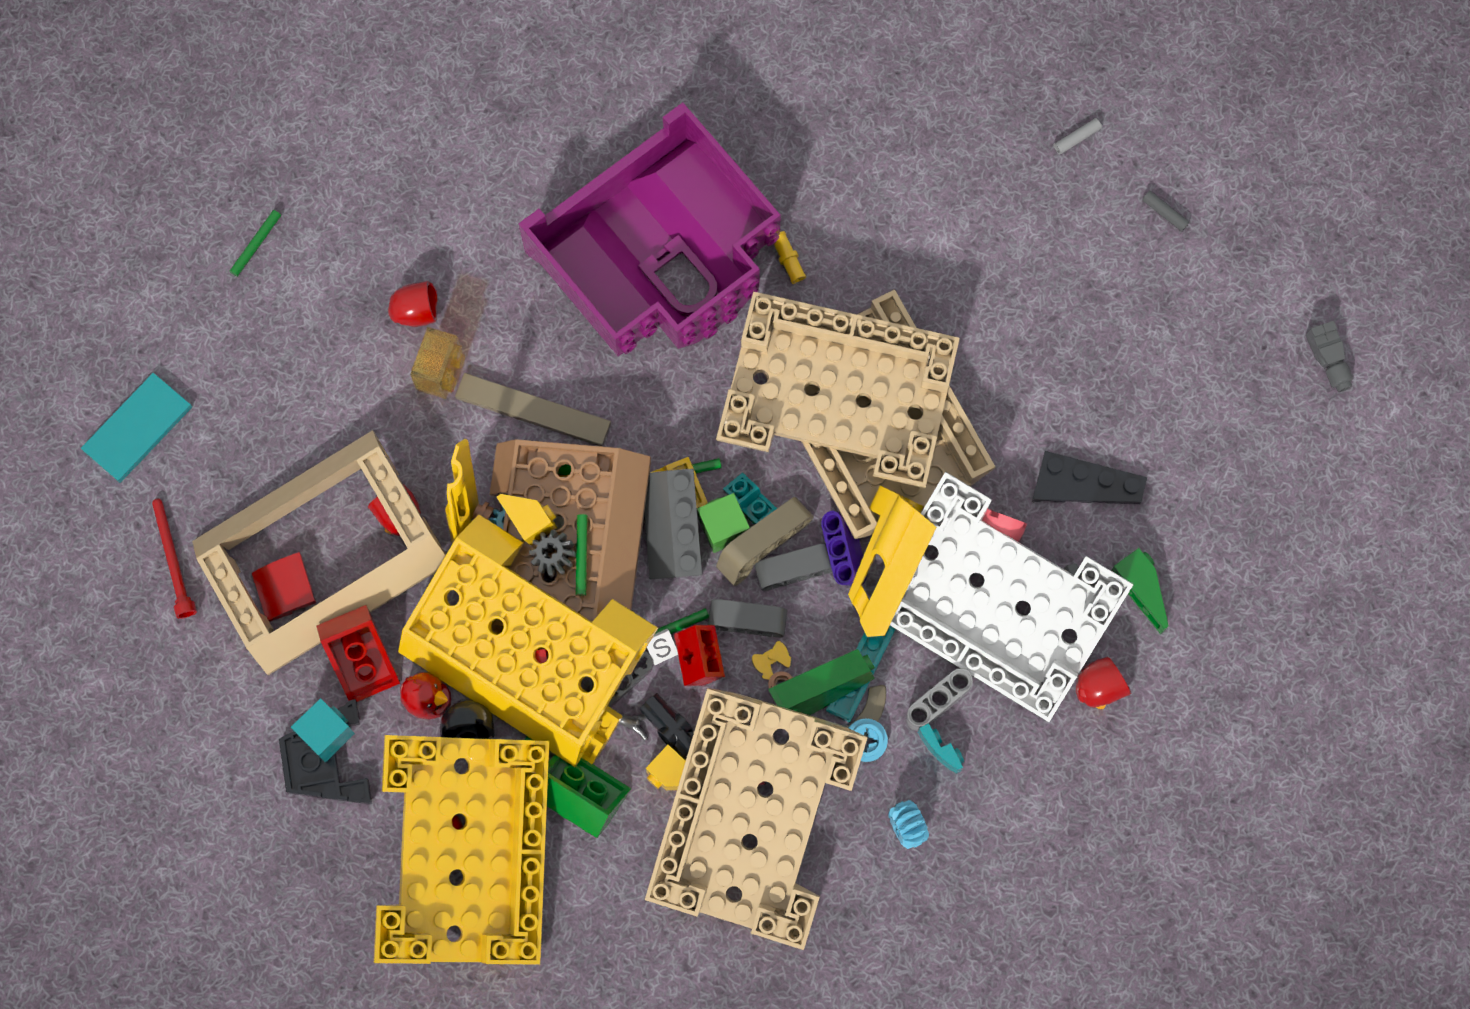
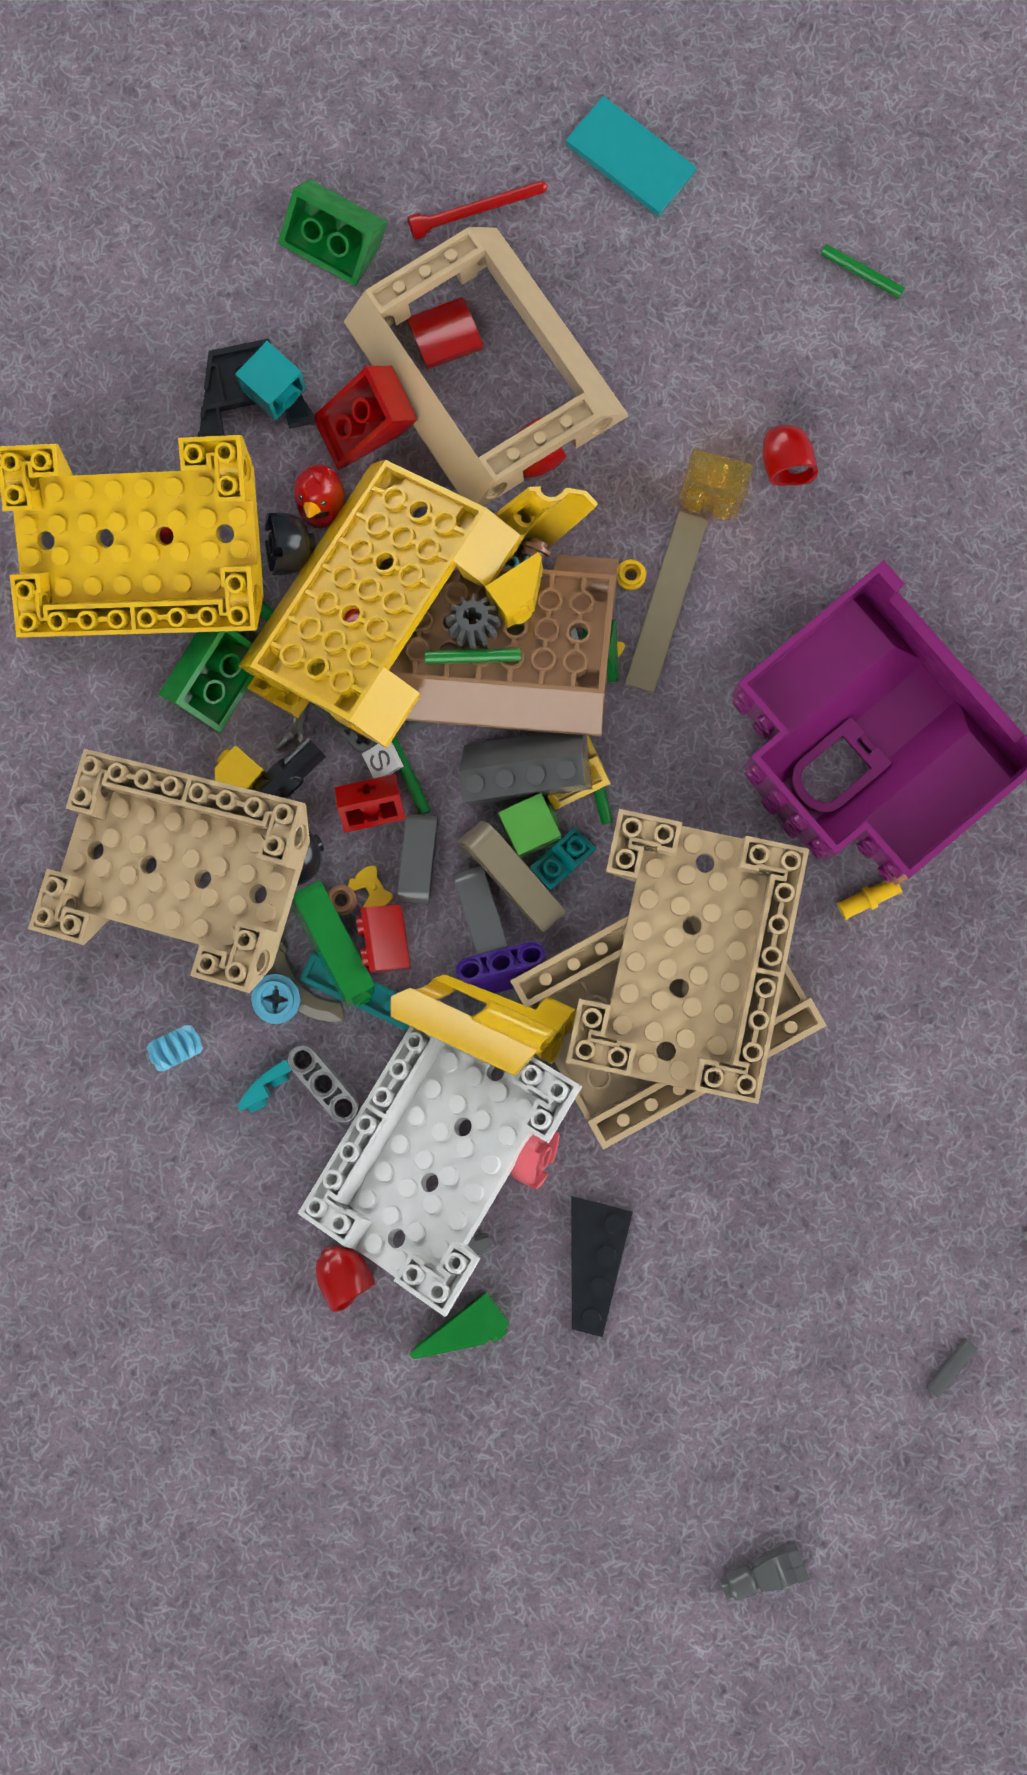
camera: 90 degrees right, 10 degrees up
(184, 682) = (331, 231): none -> green slope
(507, 430) = (635, 566): none -> yellow plate
(816, 644) = (384, 939): none -> red slope

